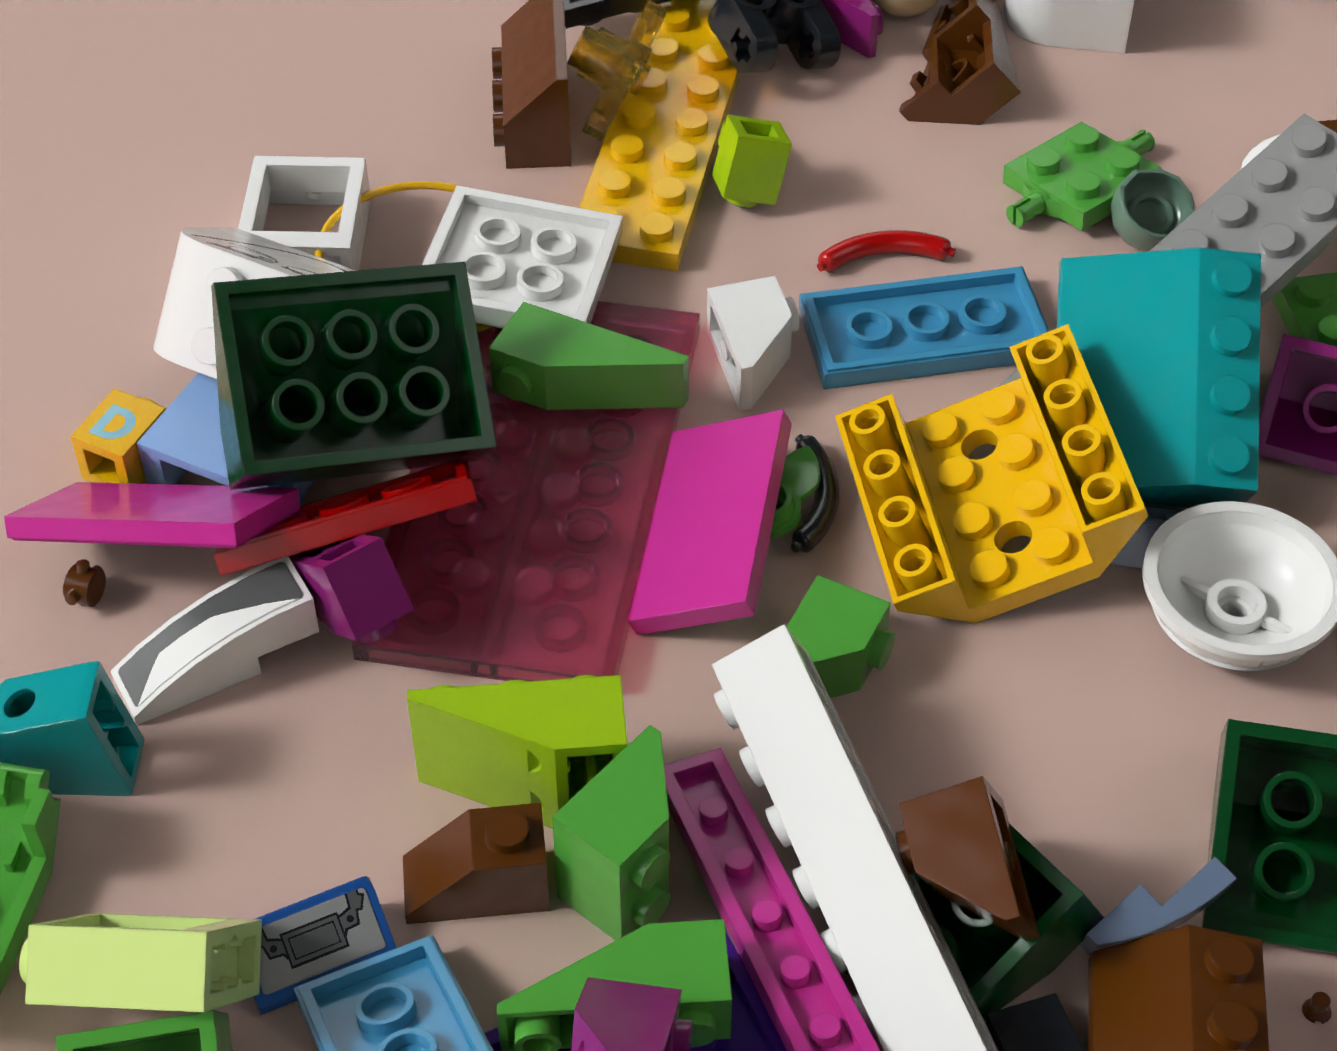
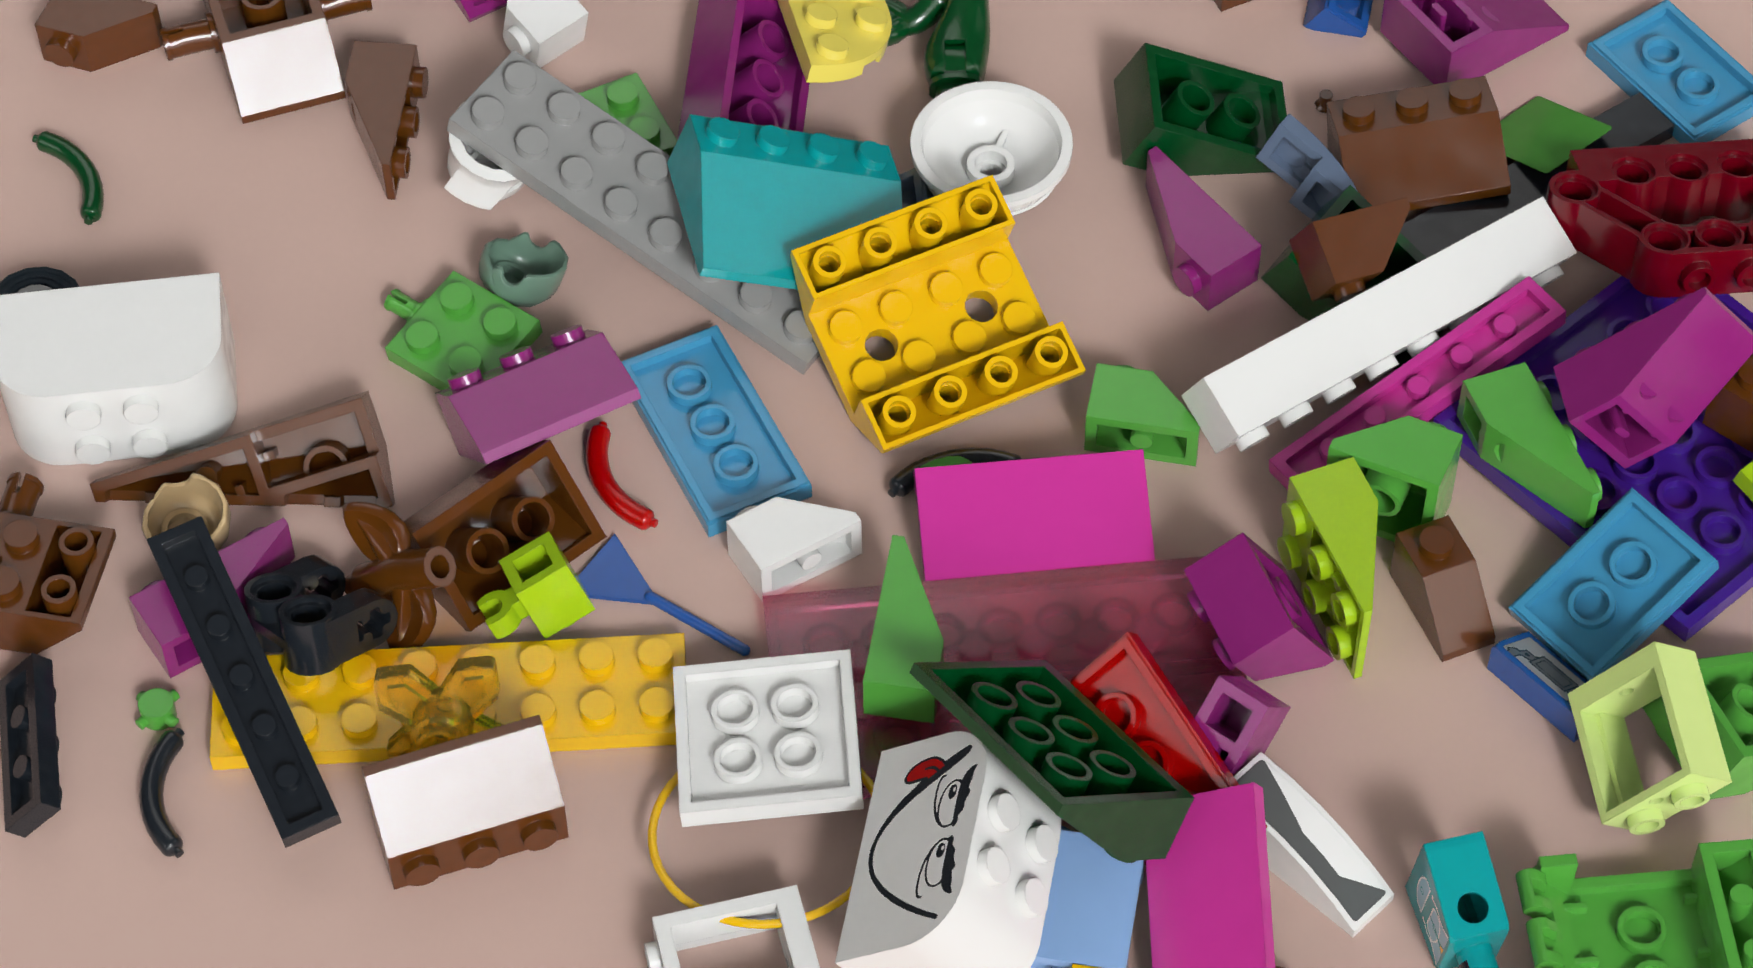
camera: 105 degrees left, 5 degrees up
(499, 637) = (1255, 612): none -> magenta slope
(767, 237) = (616, 578): none -> blue piece
(789, 70) = (397, 570): none -> reddish brown plant
(843, 155) = (498, 514): none -> reddish brown slope
(970, 178) = (535, 394): none -> magenta slope
(1090, 772) = (1203, 244): none -> magenta slope

